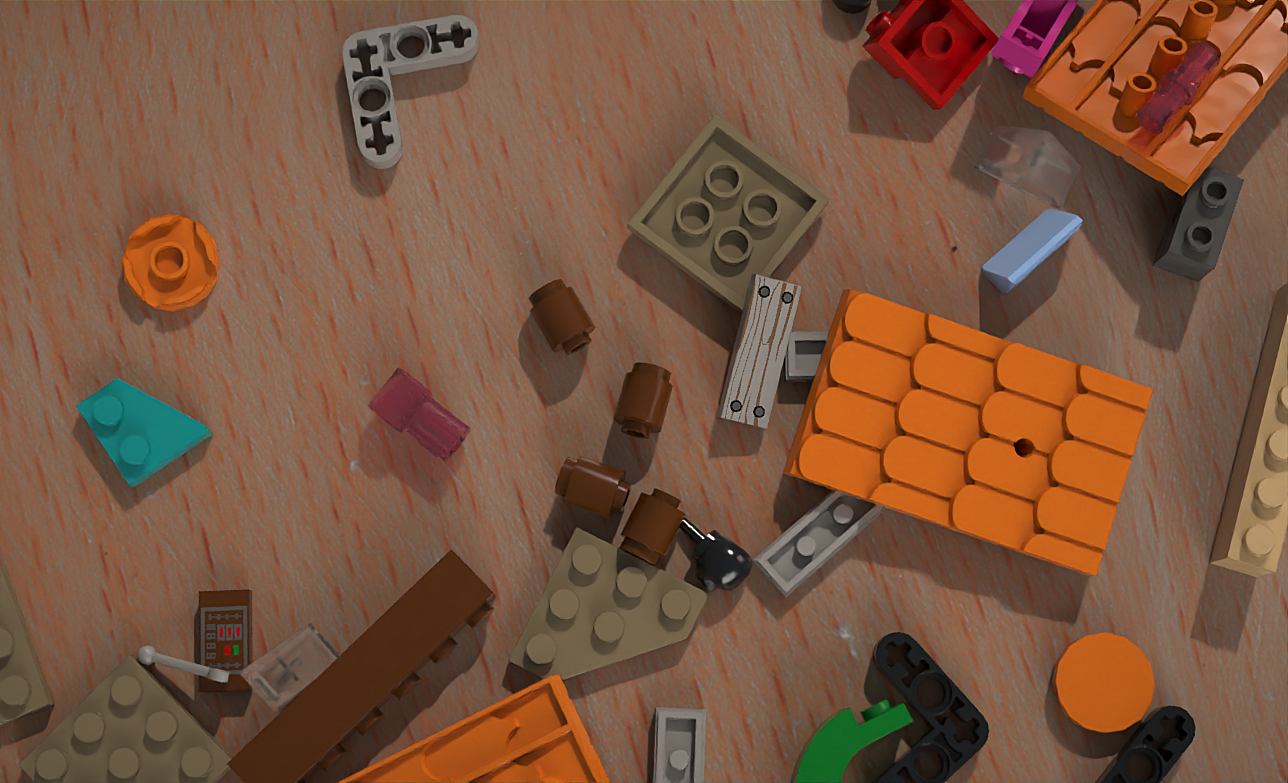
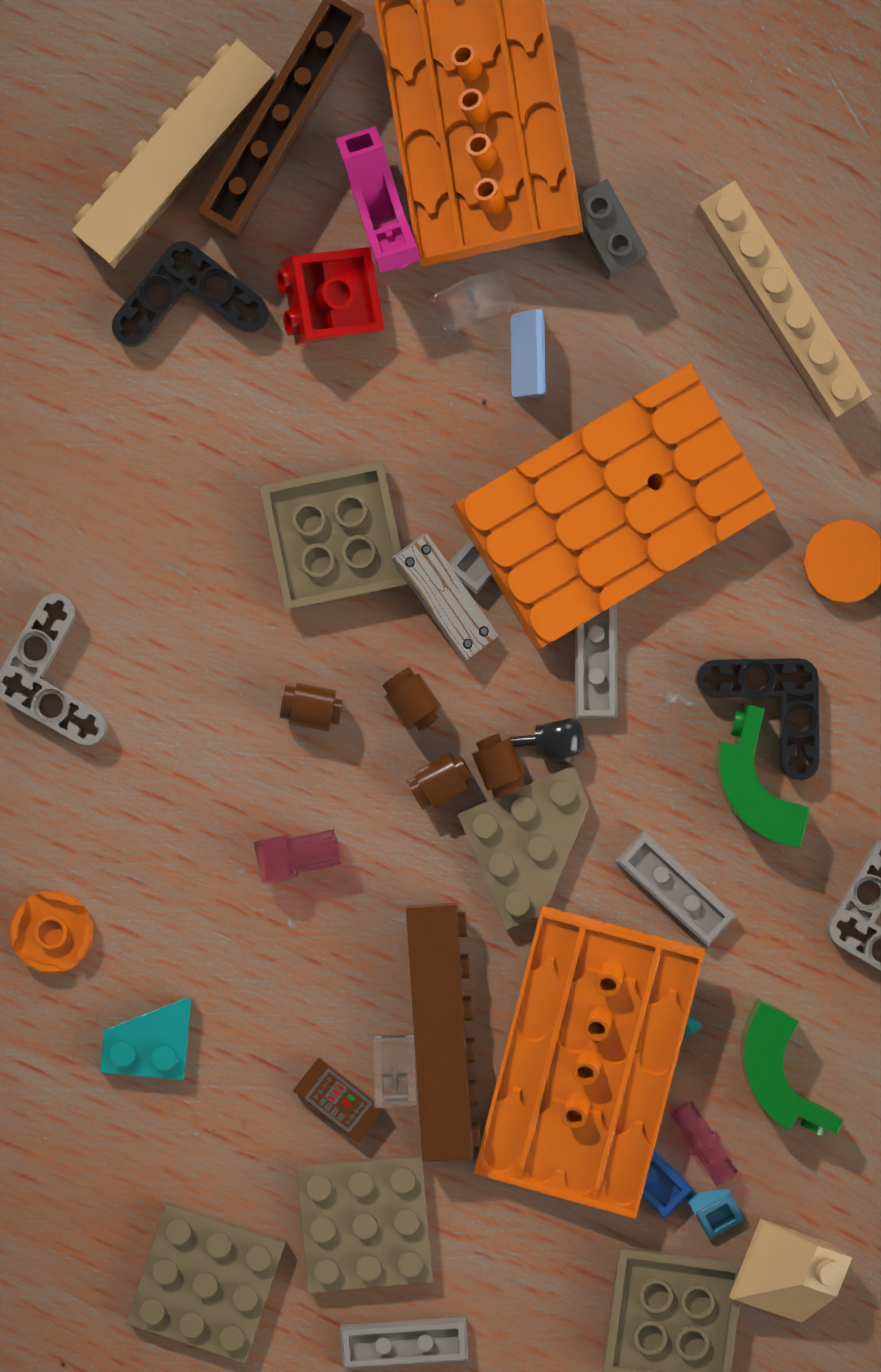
camera: 50 degrees left, 10 degrees up
(147, 655) = (306, 1156): light grey hinge -> none
(1178, 87) = (510, 169): clear pink pin -> none

